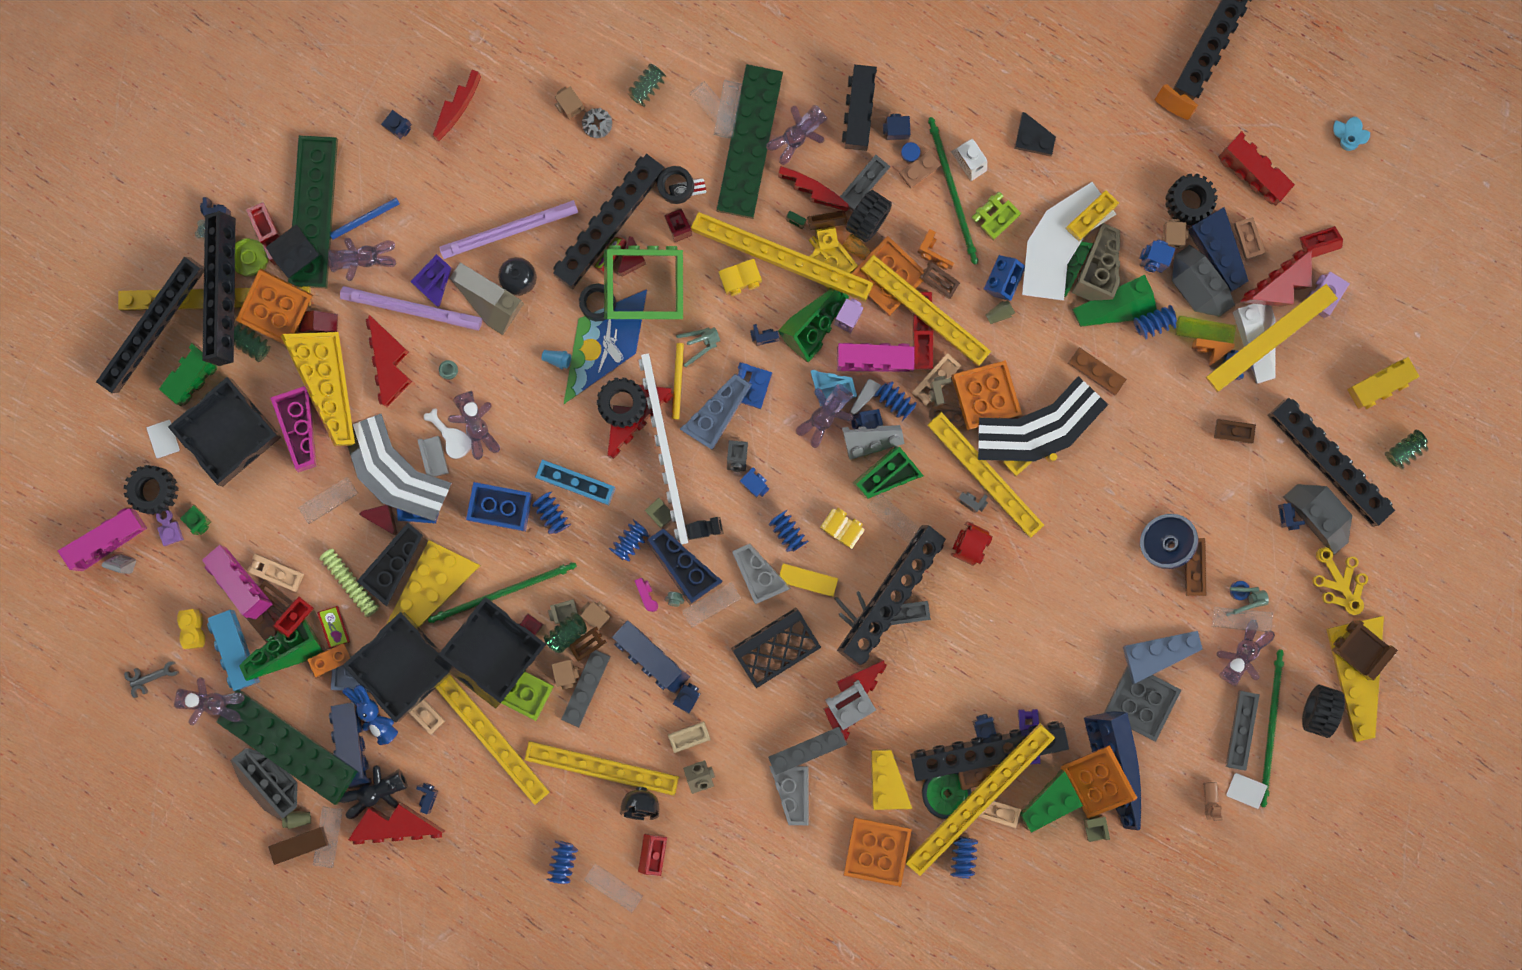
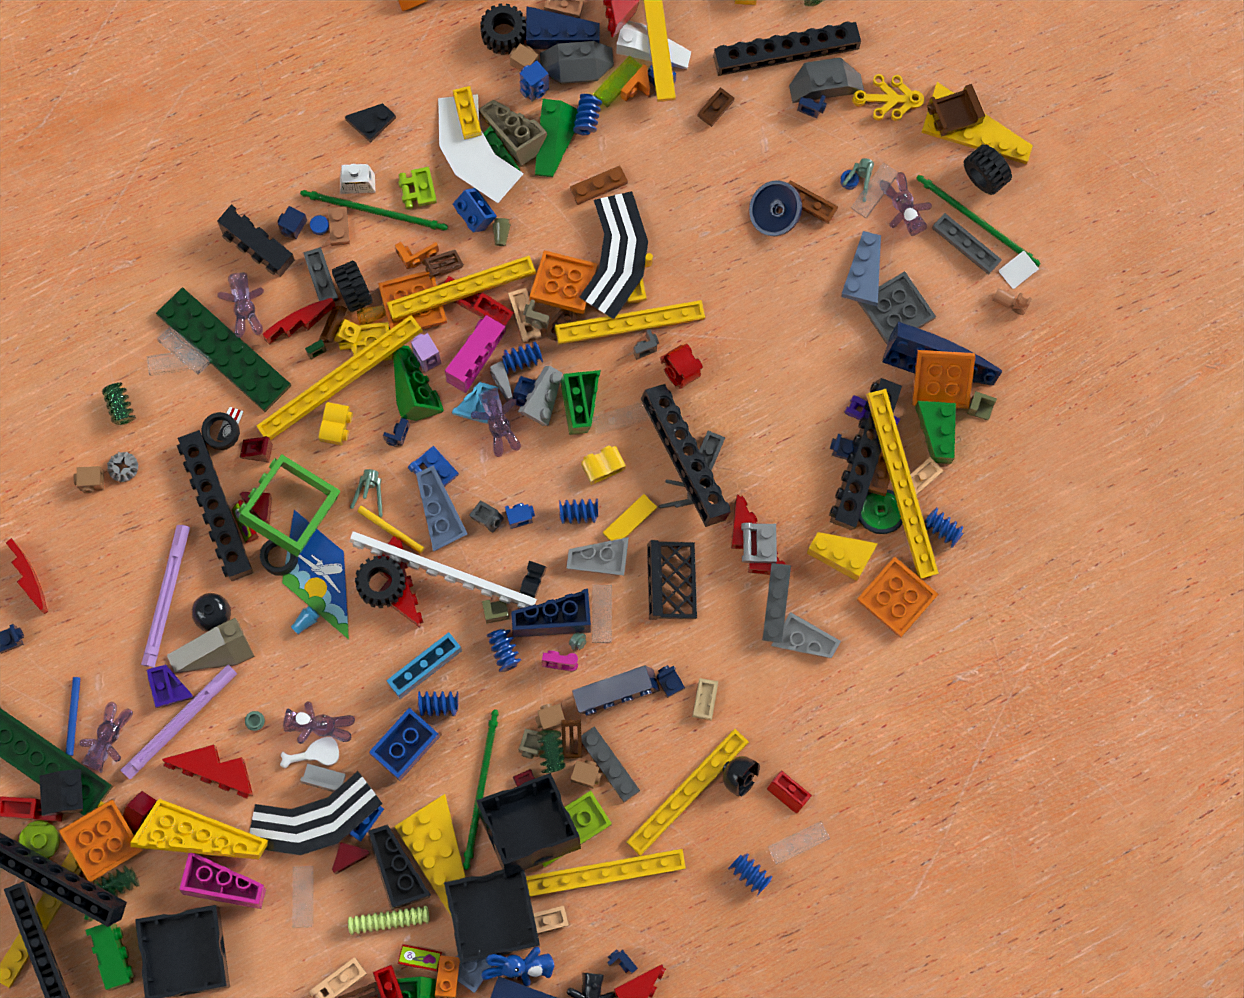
camera: 60 degrees left, 10 degrees down
(699, 776) = (745, 709): dark tan brick -> none

